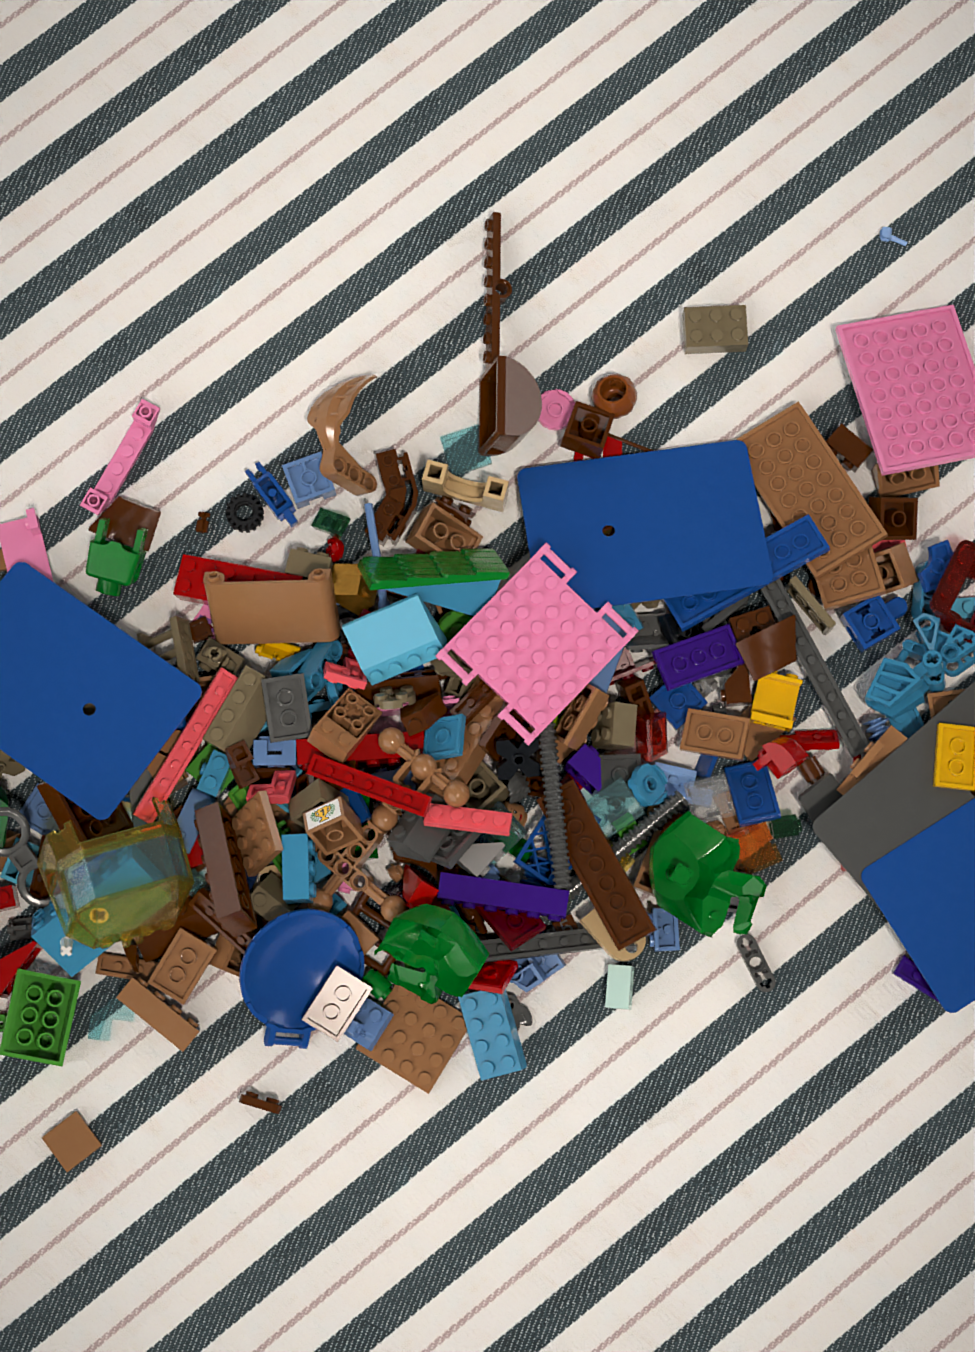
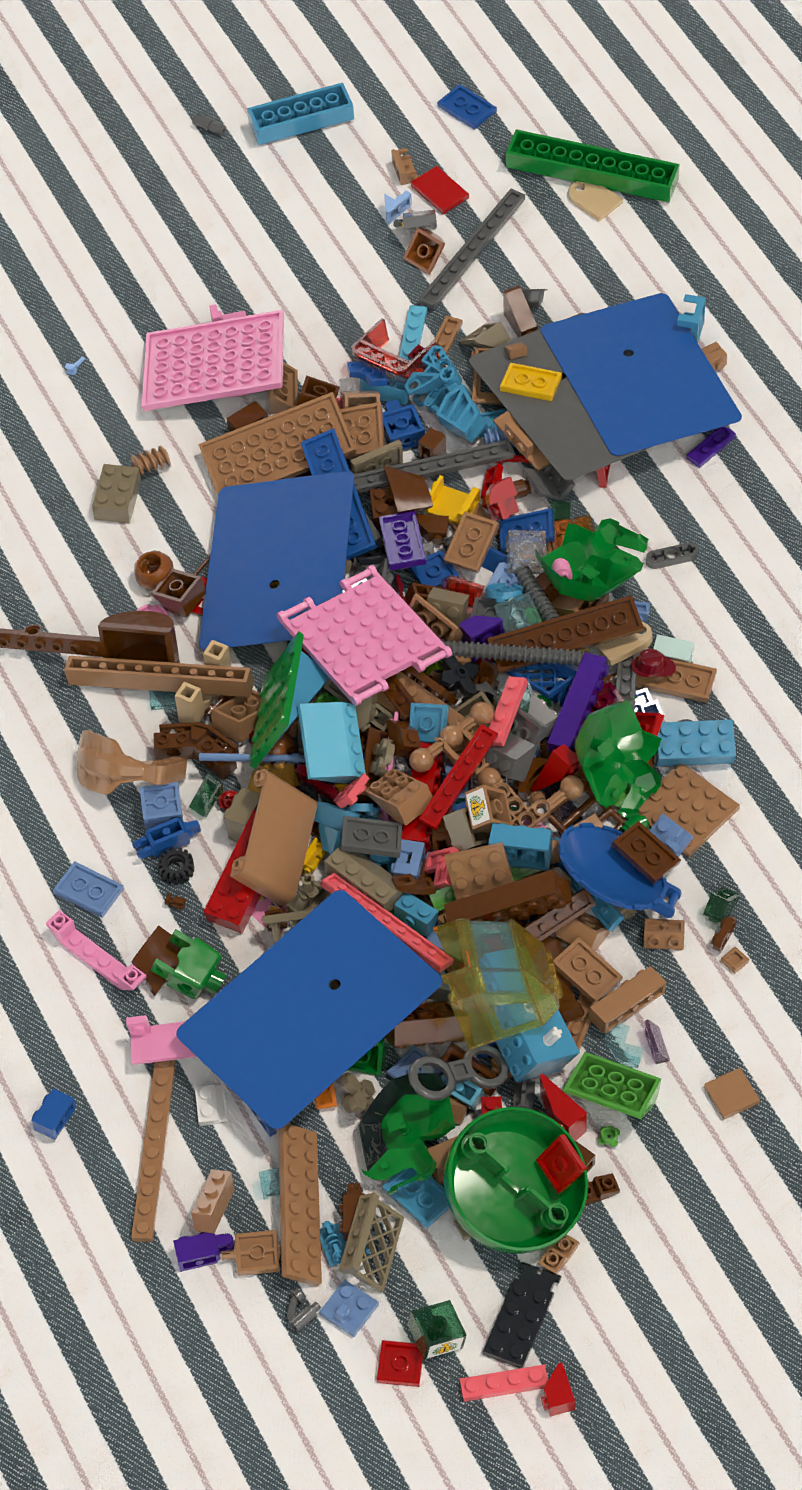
camera: 75 degrees left, 25 degrees down
(118, 1053) = (656, 1042): none -> clear purple slope
(204, 430) = (88, 889): none -> medium blue tile
(233, 1119) = (734, 960): none -> medium nougat tile
(250, 1039) = (664, 934): none -> medium nougat bracket
(296, 1094) = (720, 904): none -> clear green slope
(467, 437) = (158, 675): none -> medium nougat brick
(584, 995) = (688, 681): none -> medium nougat plate
(587, 969) = (653, 664): none -> dark red piece
(677, 844) = (562, 567): none -> bright pink brick
(767, 355) = (151, 460): none -> medium nougat piece
(844, 664) = (432, 444): none -> reddish brown brick

